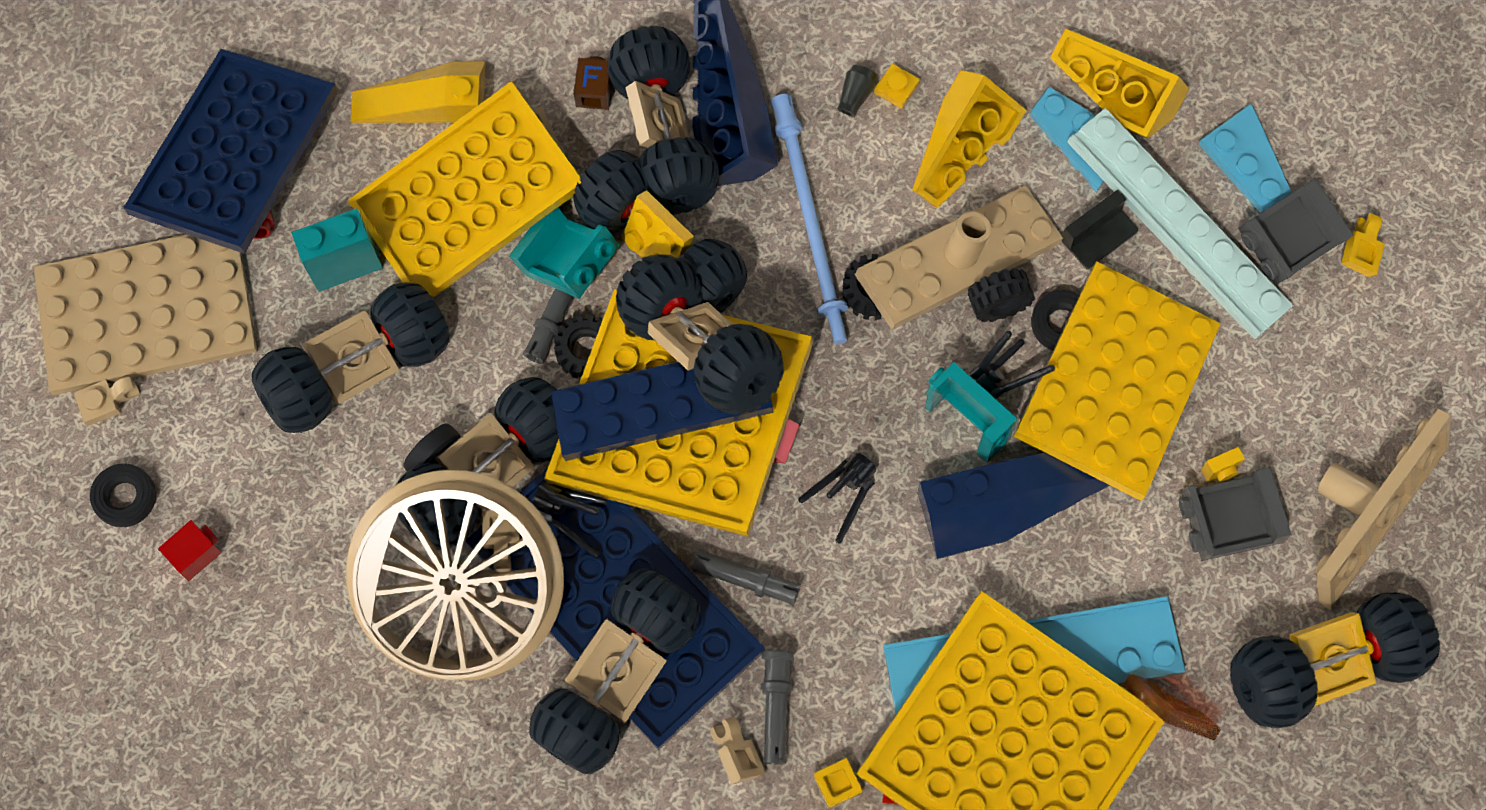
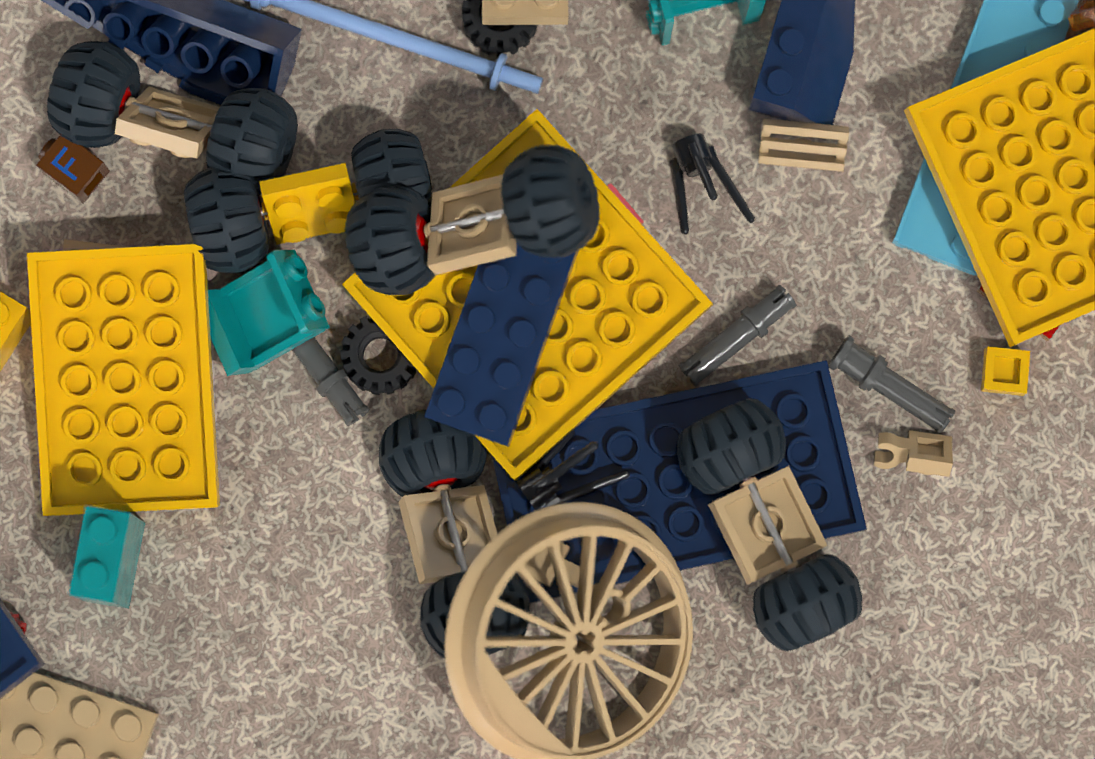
camera: 65 degrees left, 10 degrees up
(350, 357) = (240, 613): black plate -> none
(431, 446) = (404, 582): black tyre -> none
(909, 545) = (798, 159): none -> tan tile

